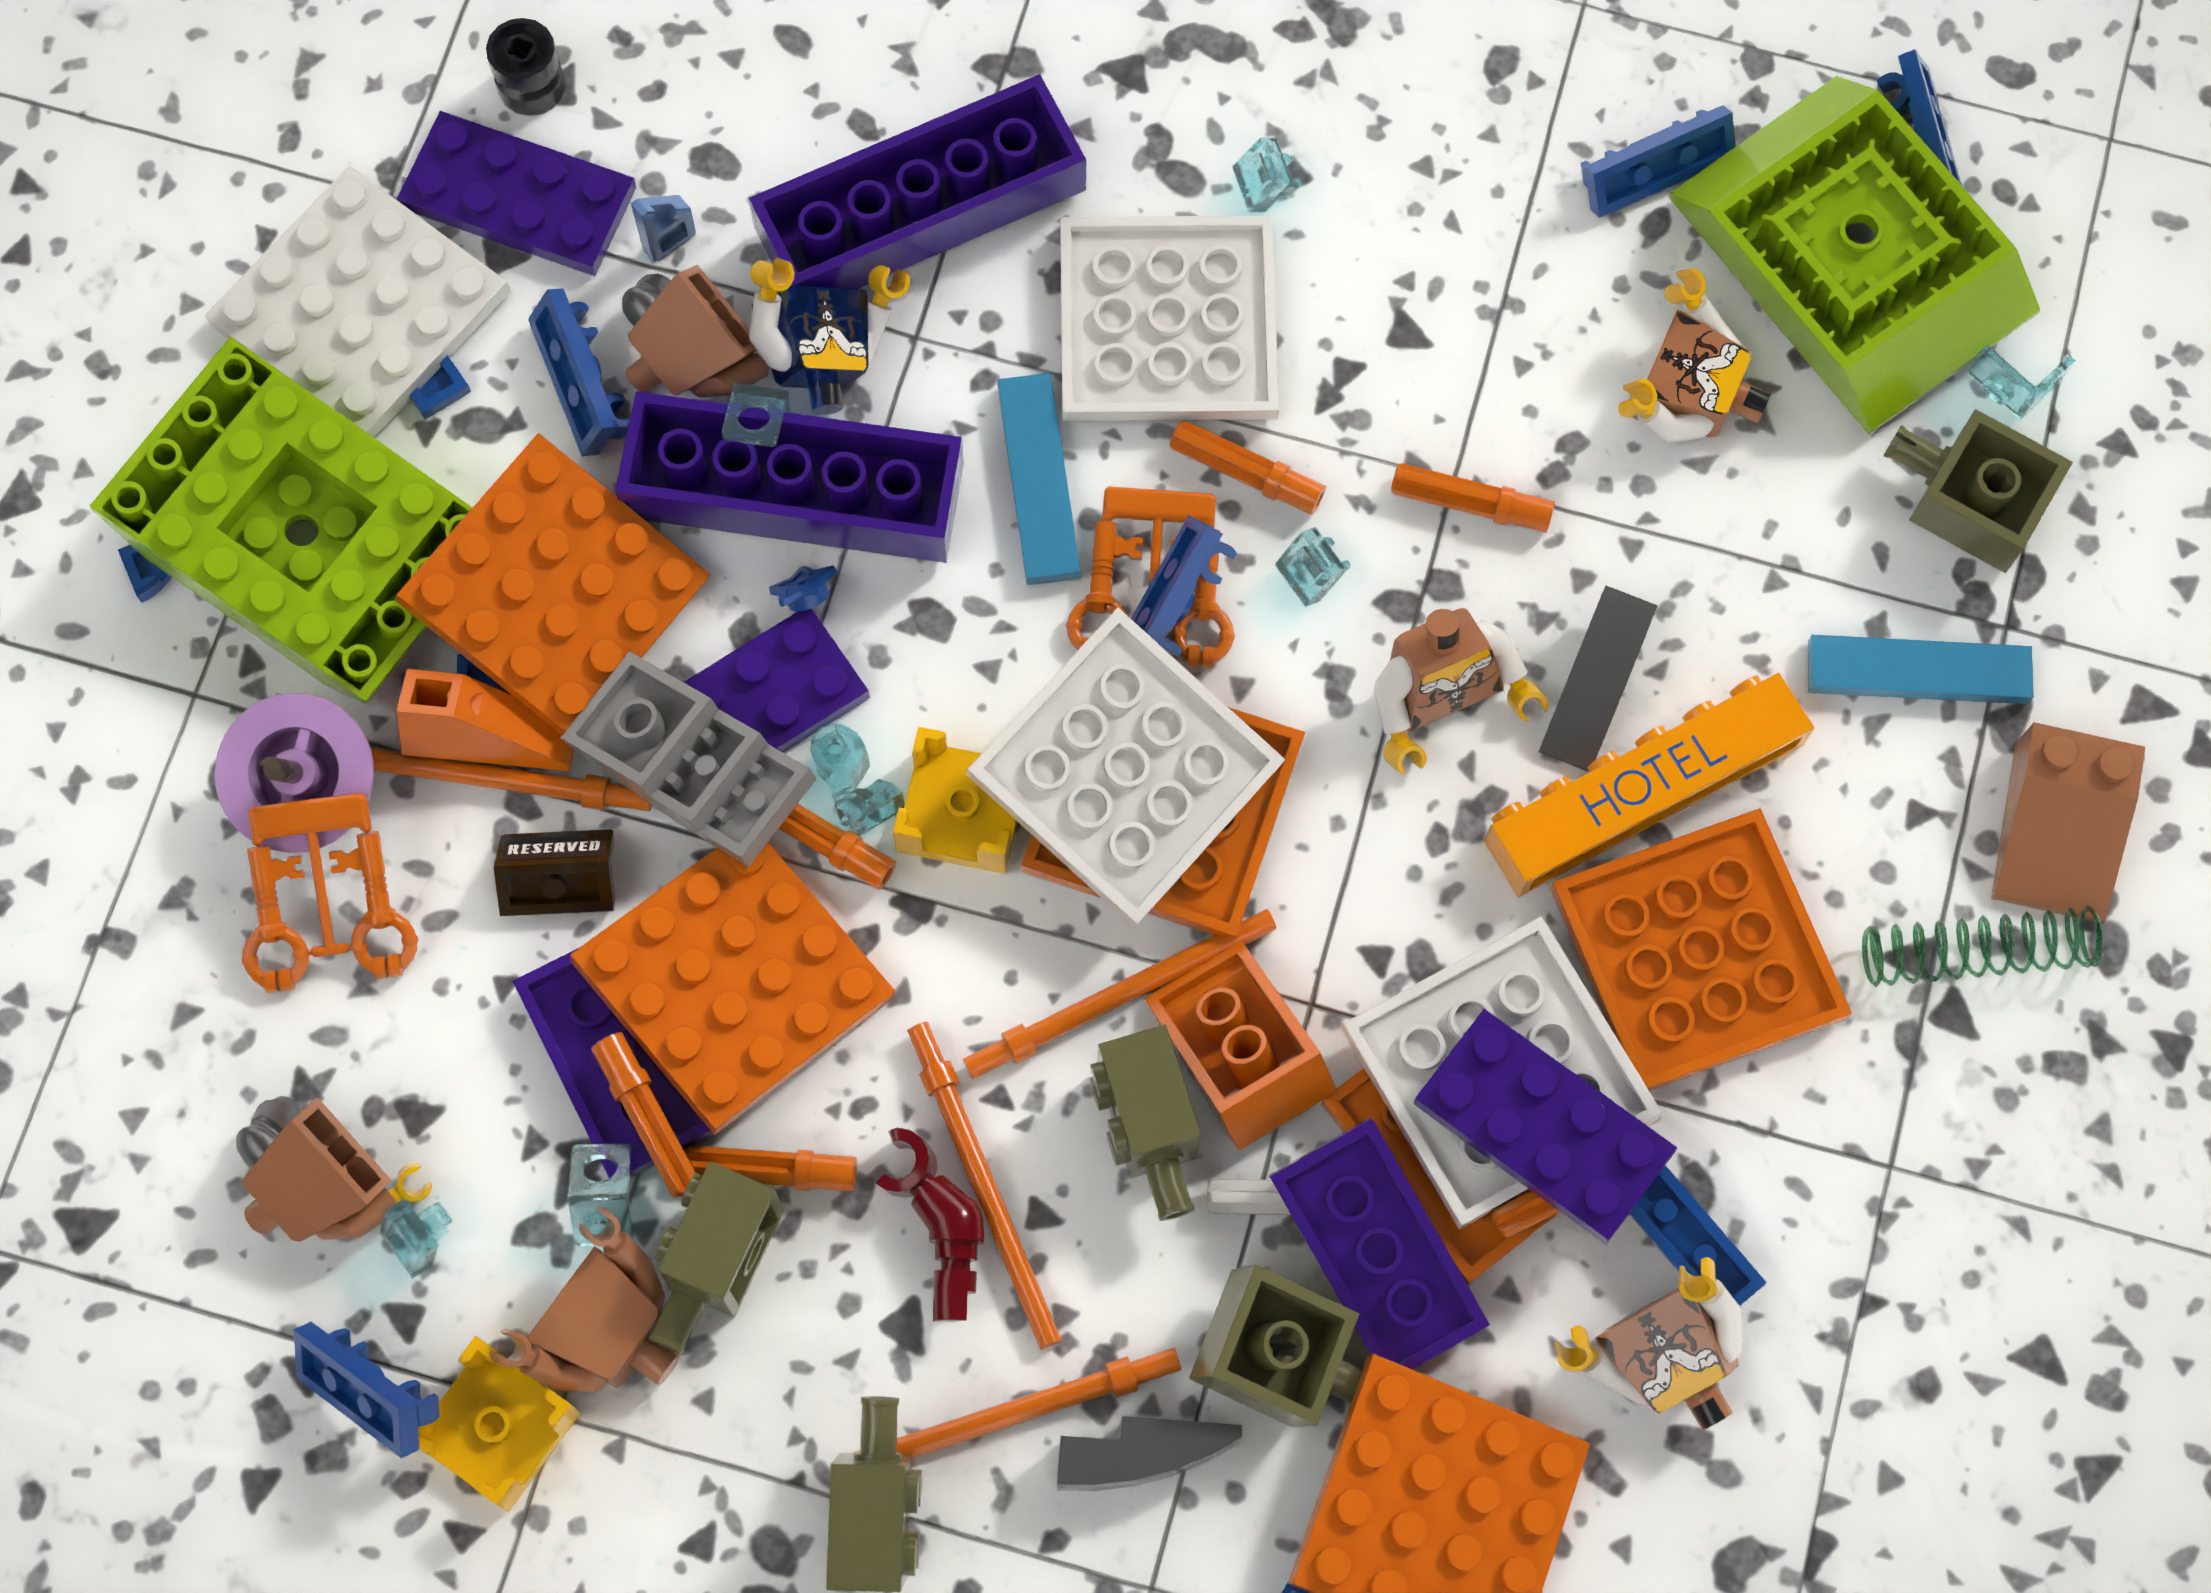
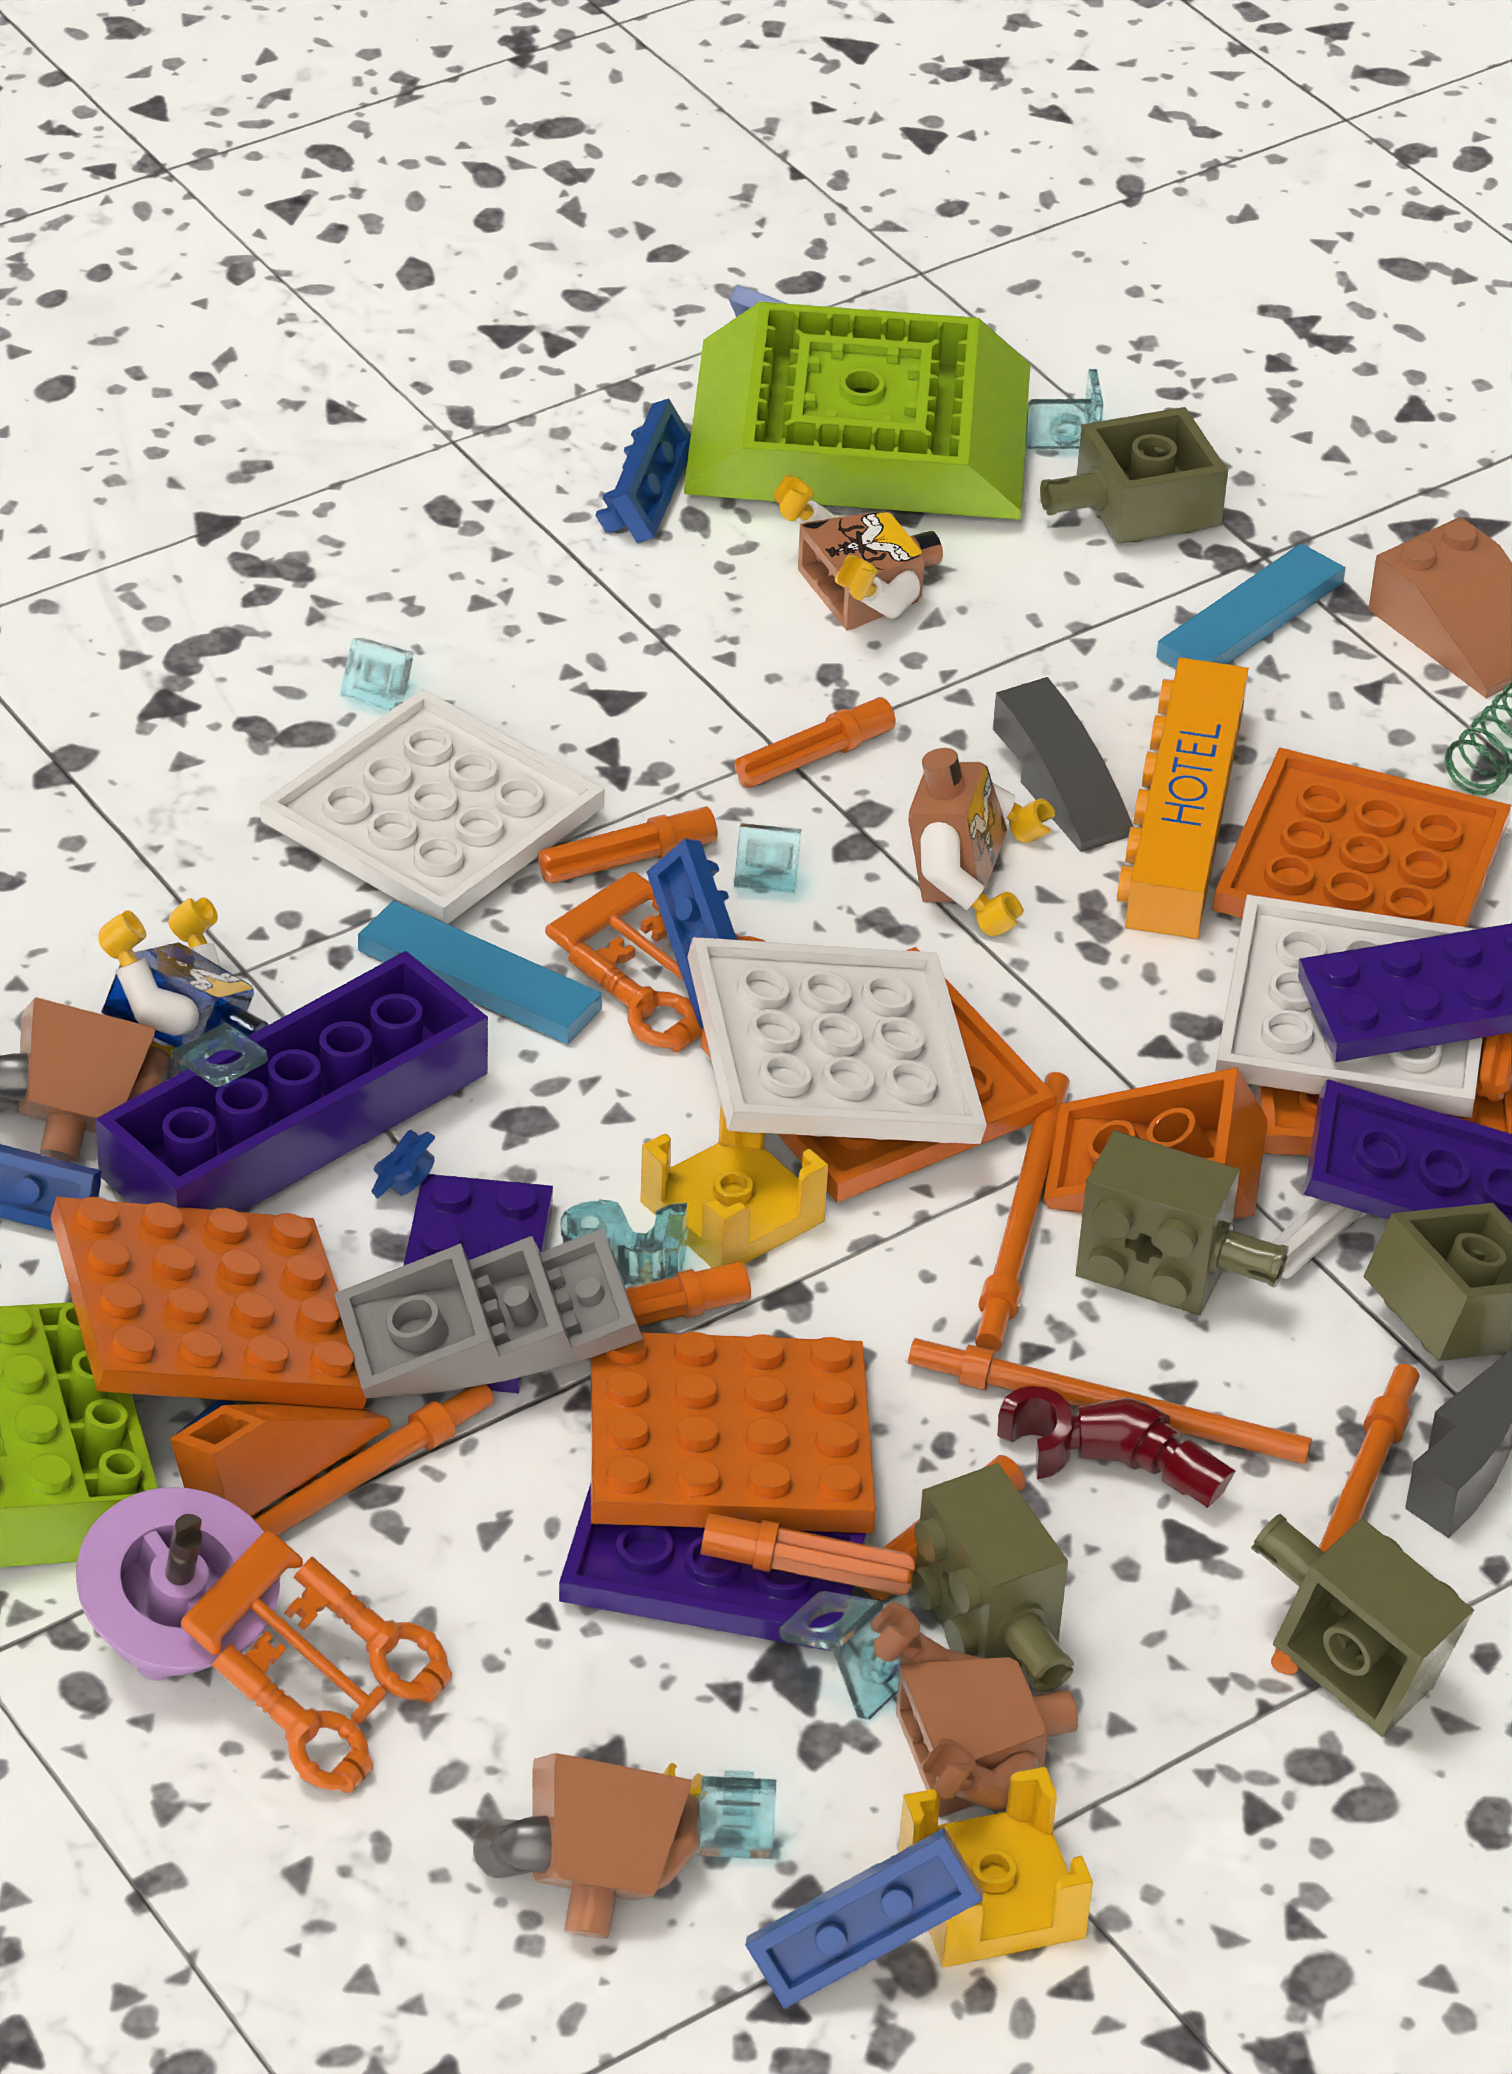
camera: 50 degrees left, 30 degrees down
(555, 872) = (484, 1497): dark brown panel -> none
(923, 189) = (128, 846): dark purple brick -> none

